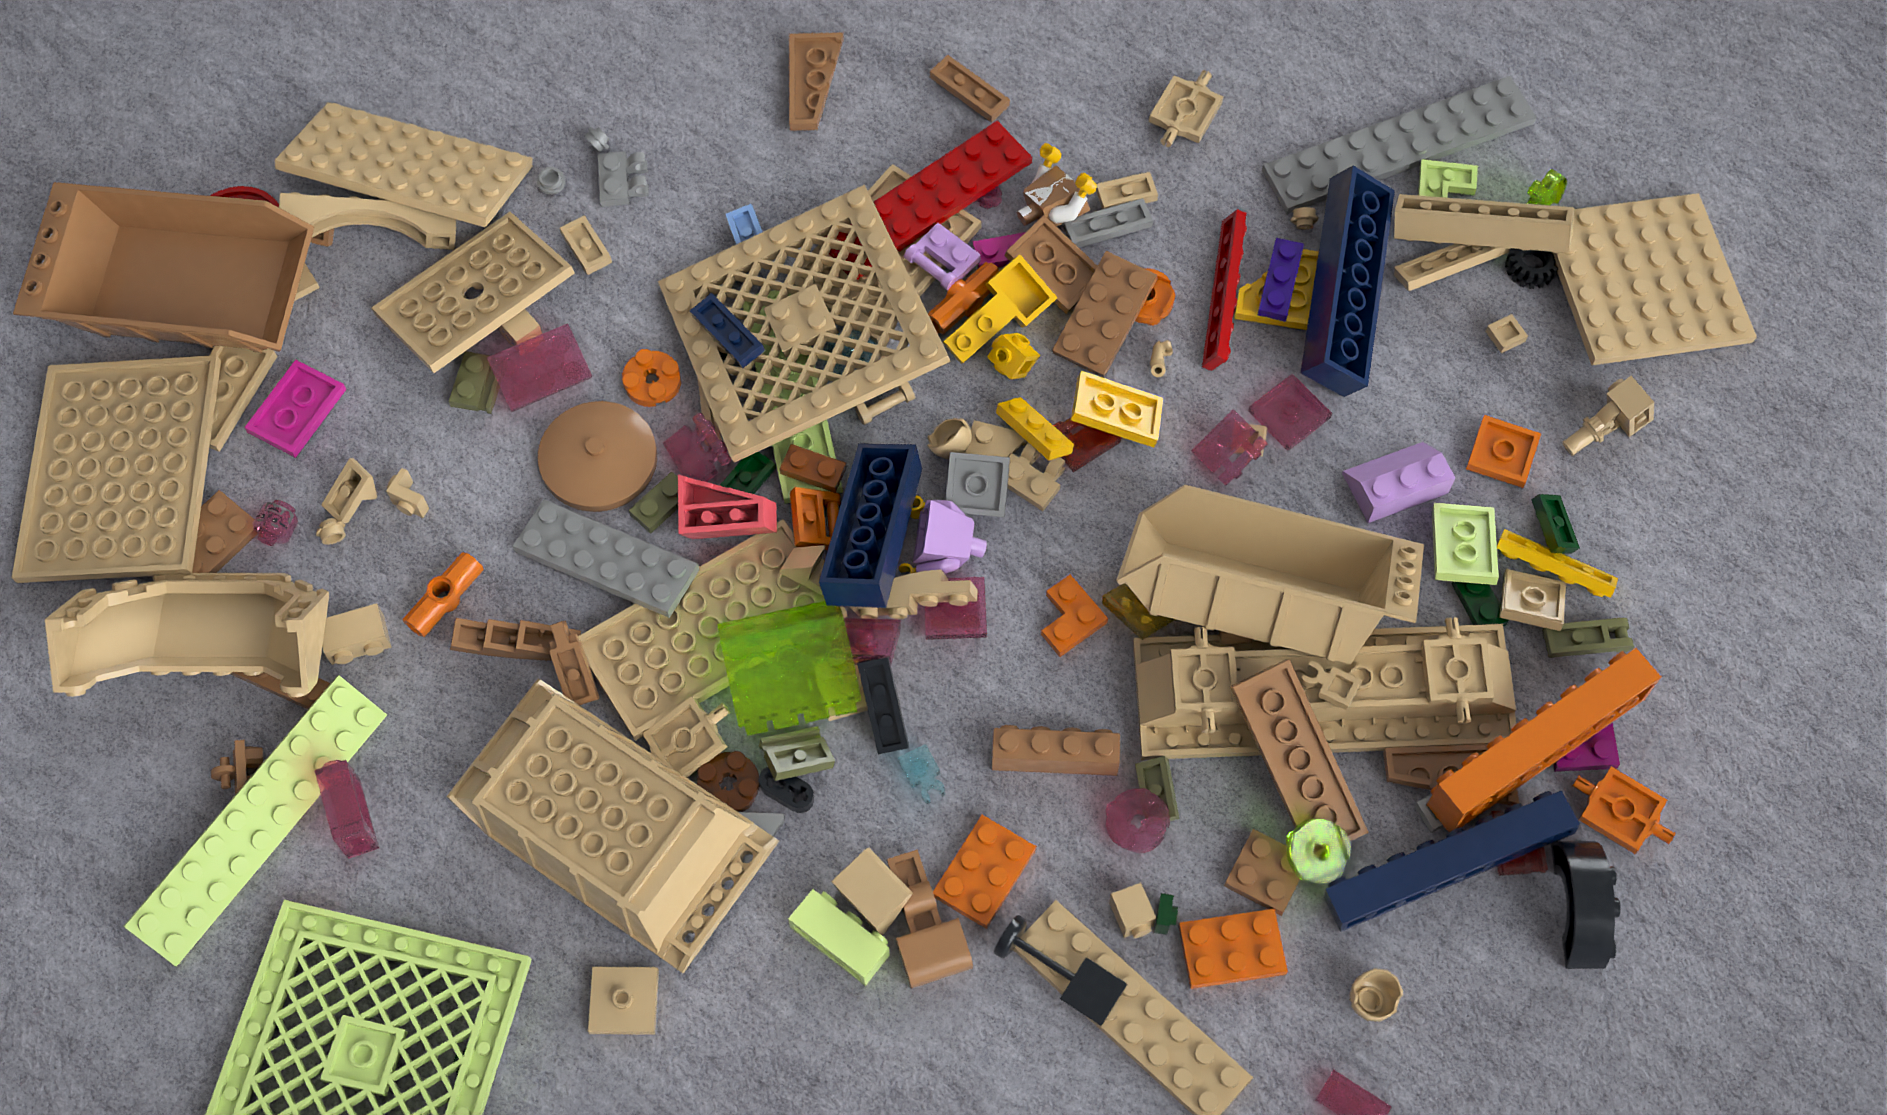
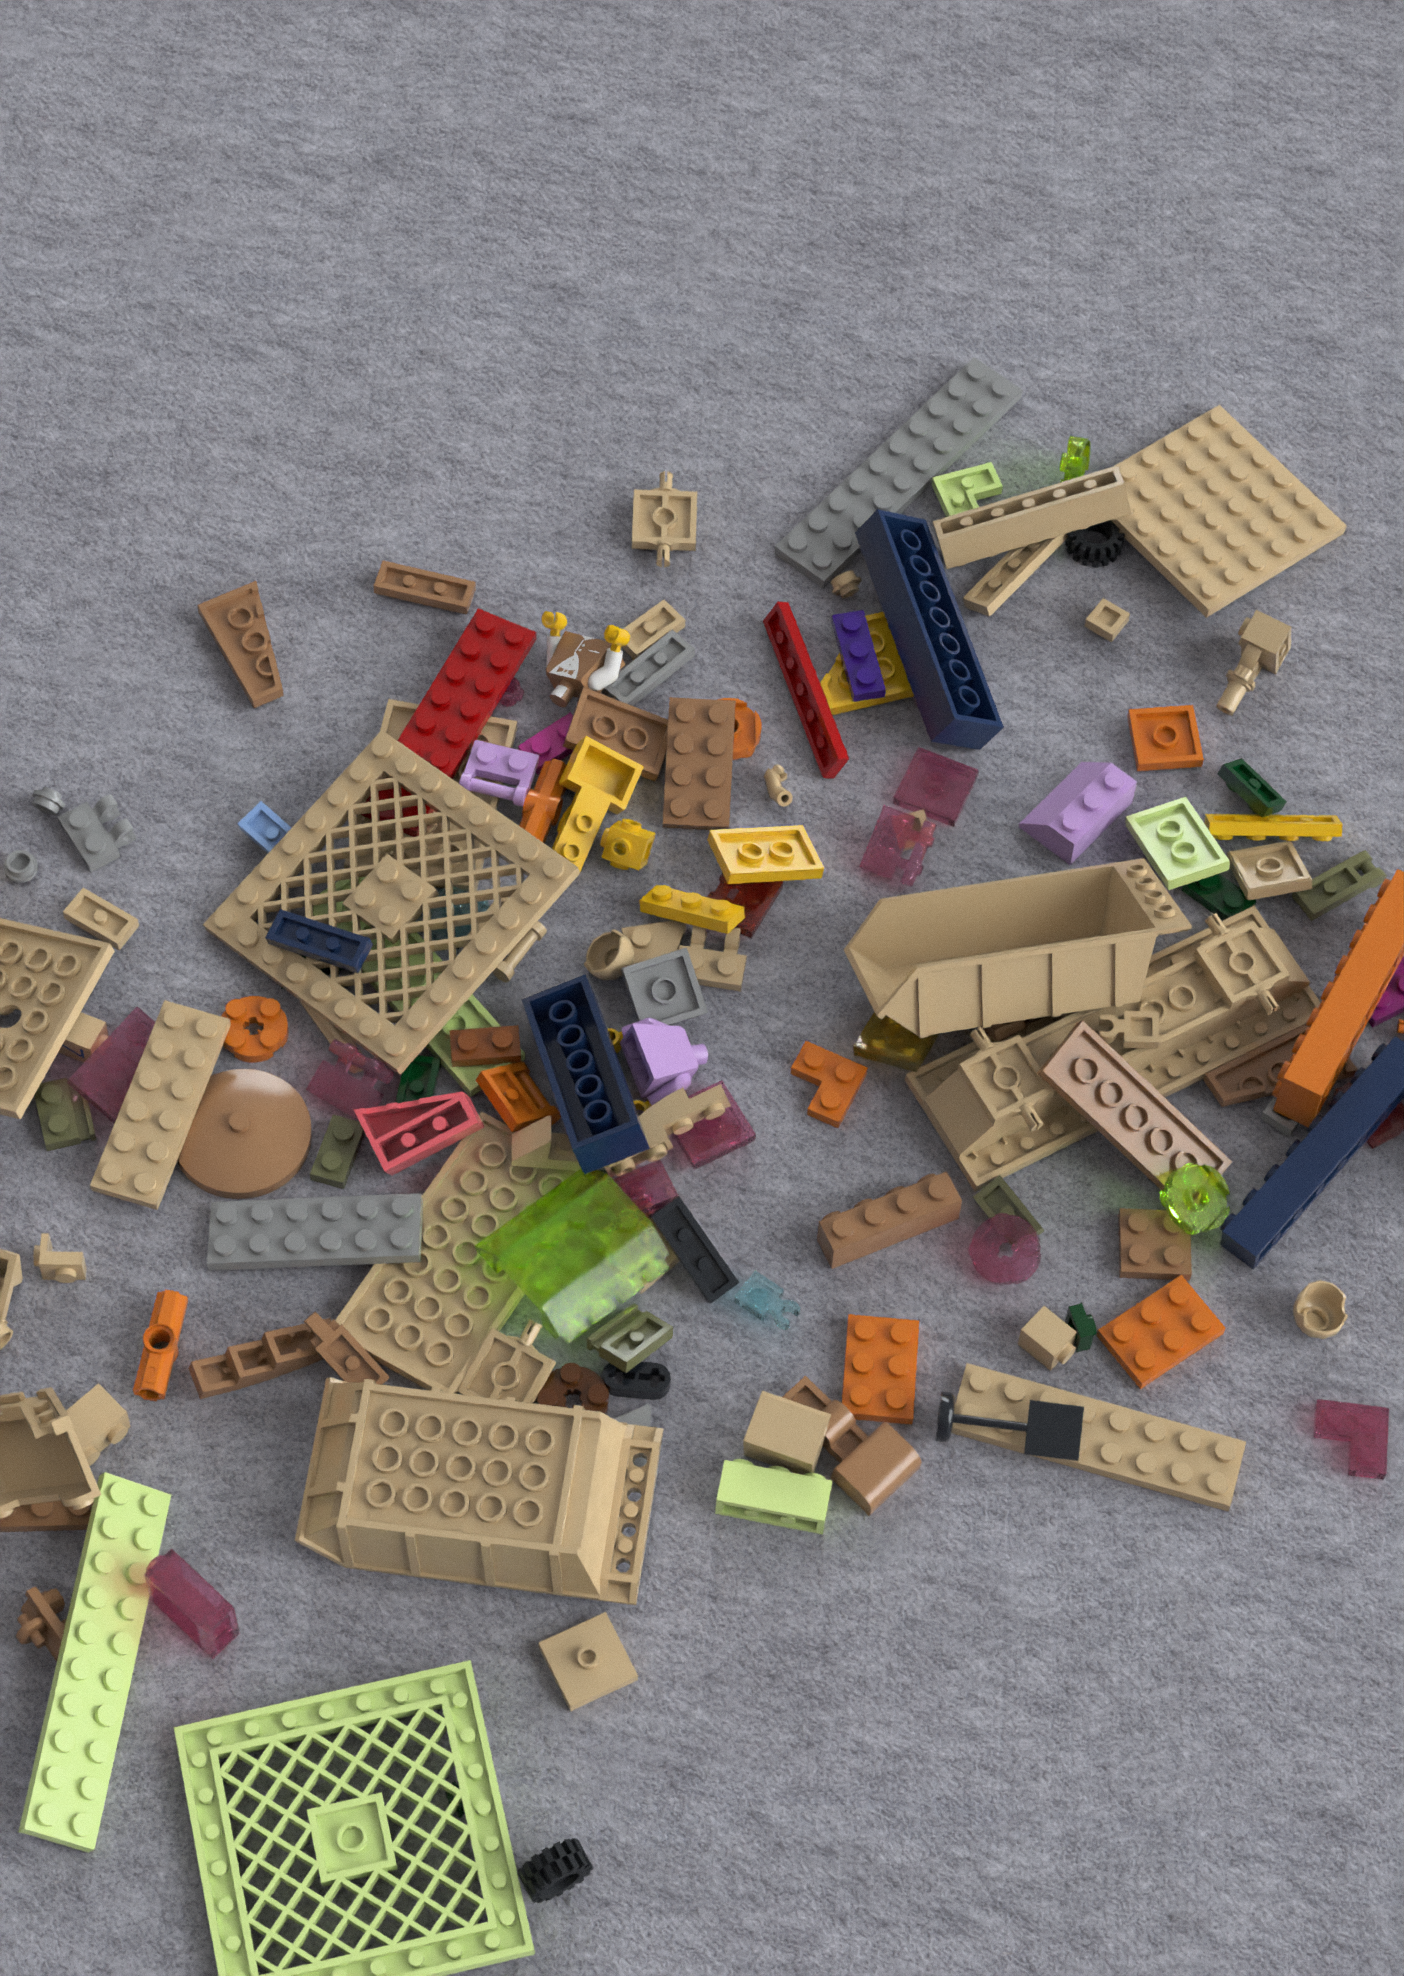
camera: 30 degrees left, 5 degrees down
(545, 407) = (160, 1105): none -> tan plate

